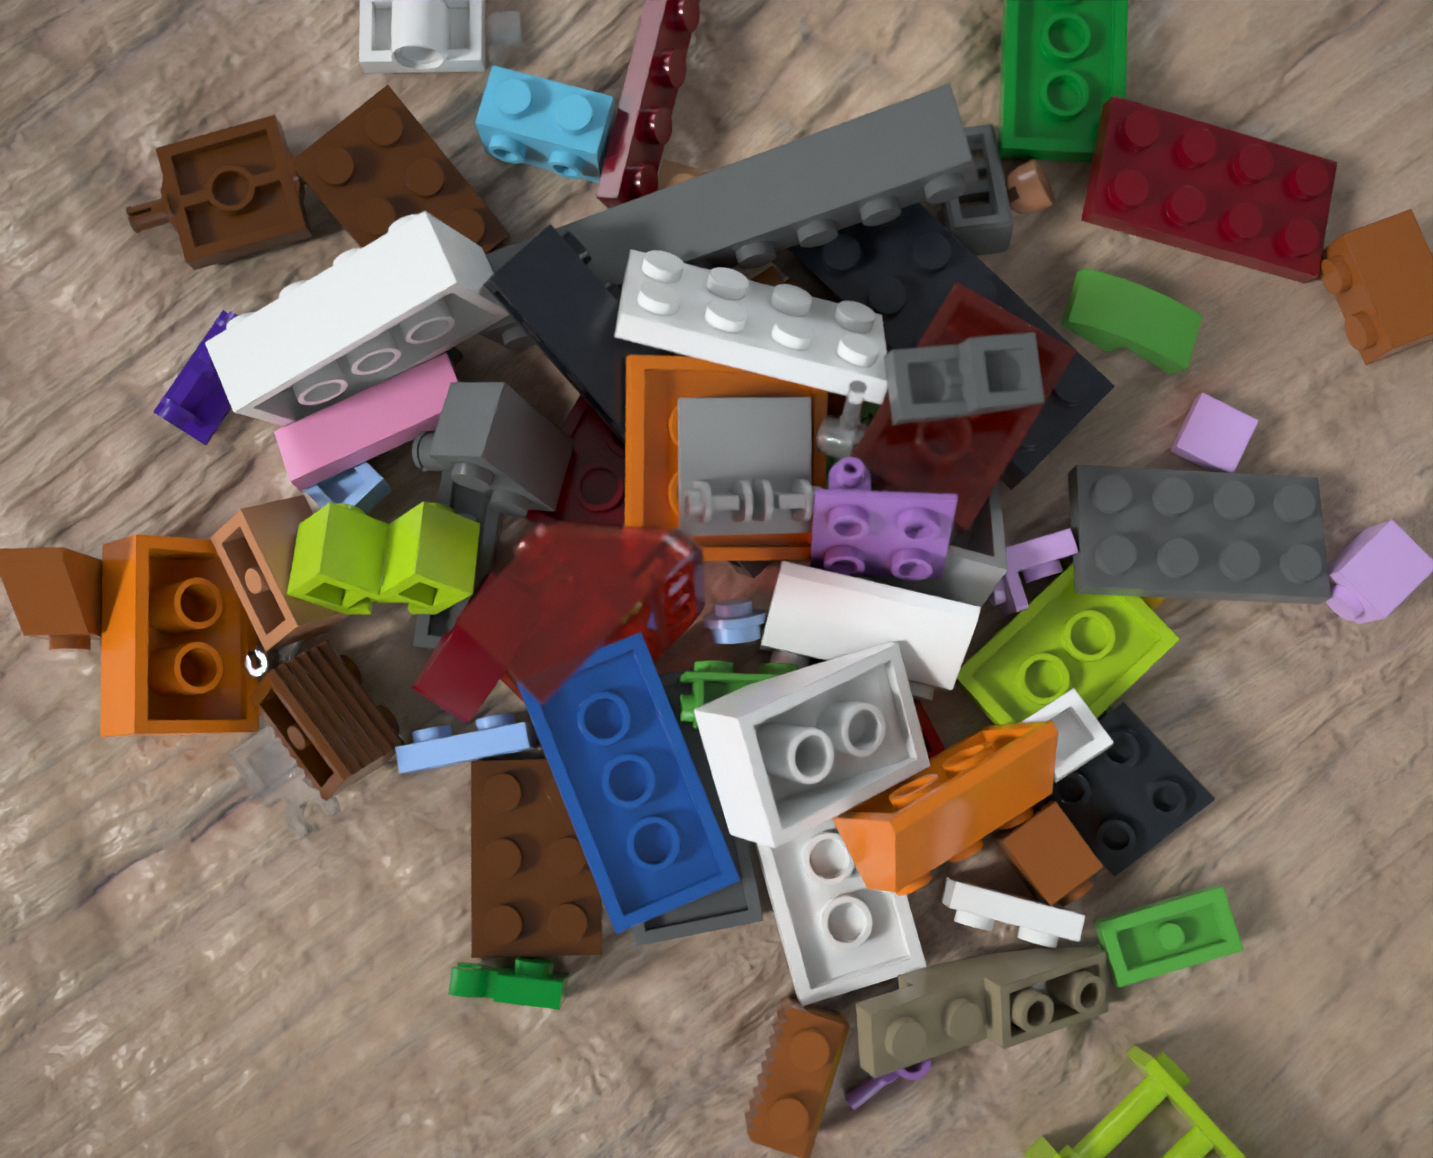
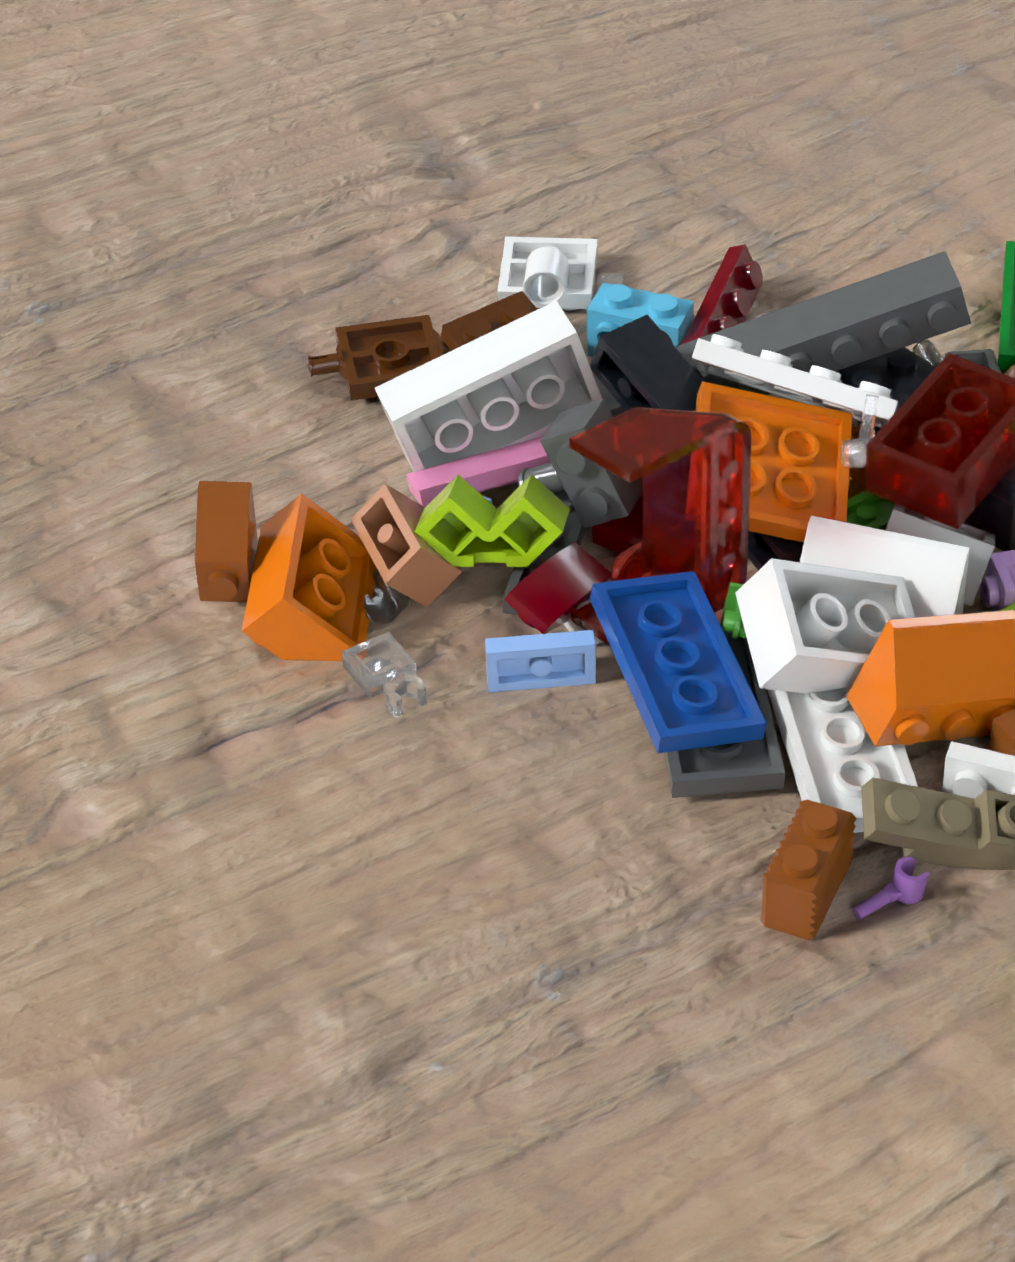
camera: 10 degrees right, 40 degrees down
(197, 397) = (356, 452): dark purple hinge -> none
(327, 719) = (428, 629): reddish brown brick -> none
(527, 984) = (570, 803): green plate -> none
(528, 867) = (588, 744): reddish brown plate -> none
(745, 465) = (792, 457): light grey hinge -> none
(879, 531) = (891, 487): medium lavender hinge -> none
(964, 378) = (966, 395): dark grey slope -> none

